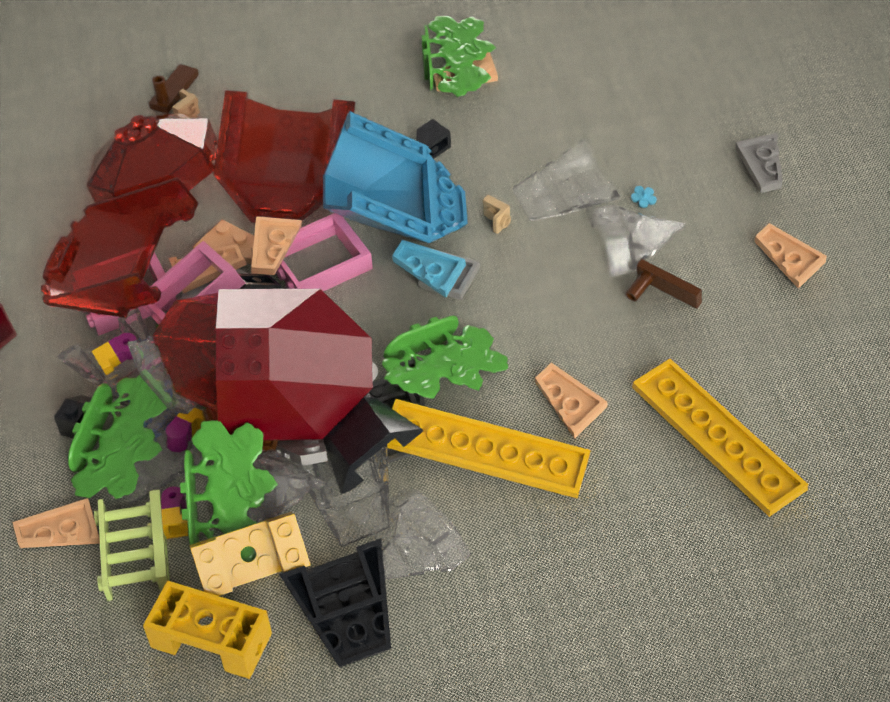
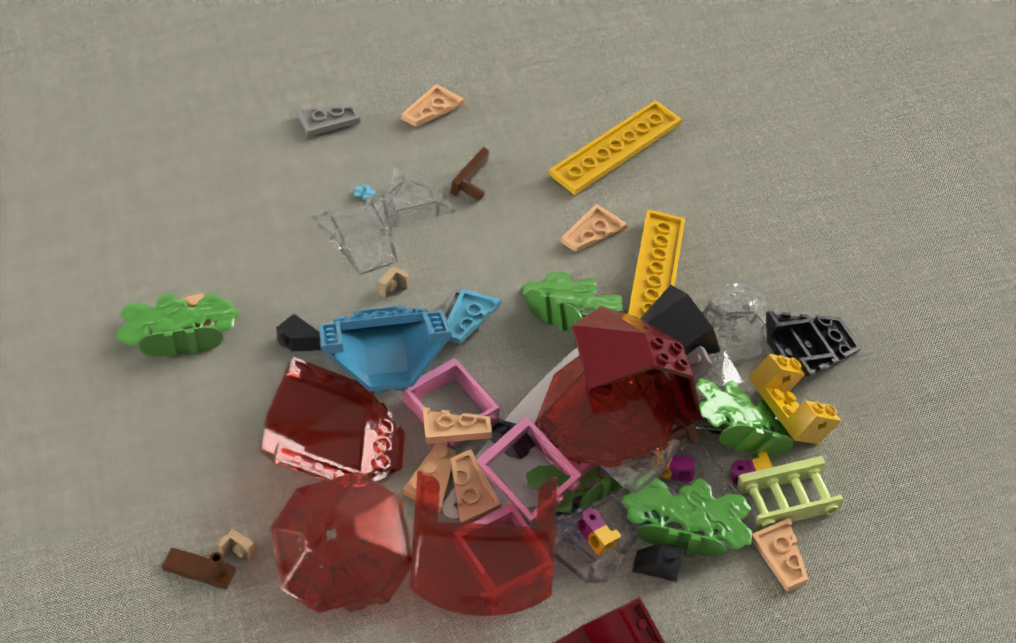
camera: 100 degrees left, 0 degrees up
(235, 633) = (861, 435): yellow plate -> none

